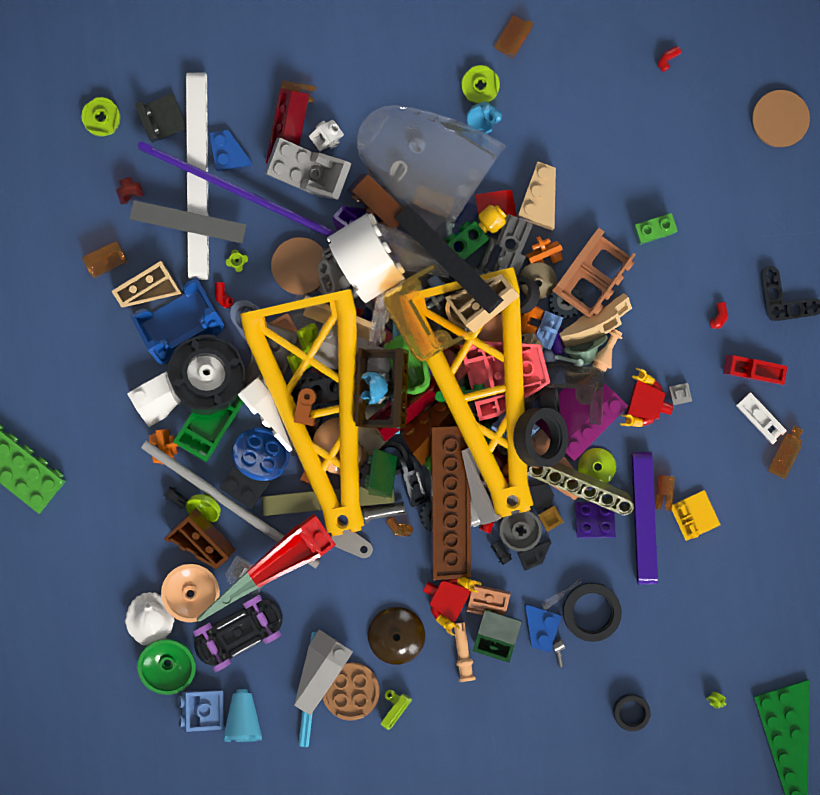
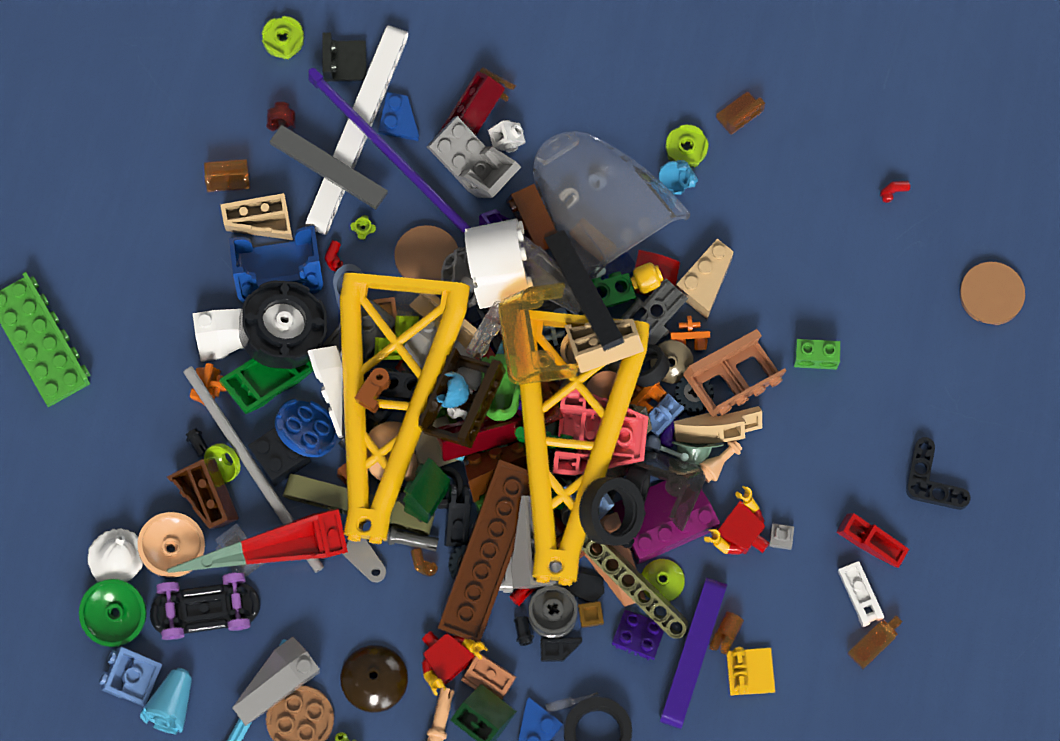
camera: 20 degrees right, 15 degrees down
(721, 318) = (854, 473): red arm -> none

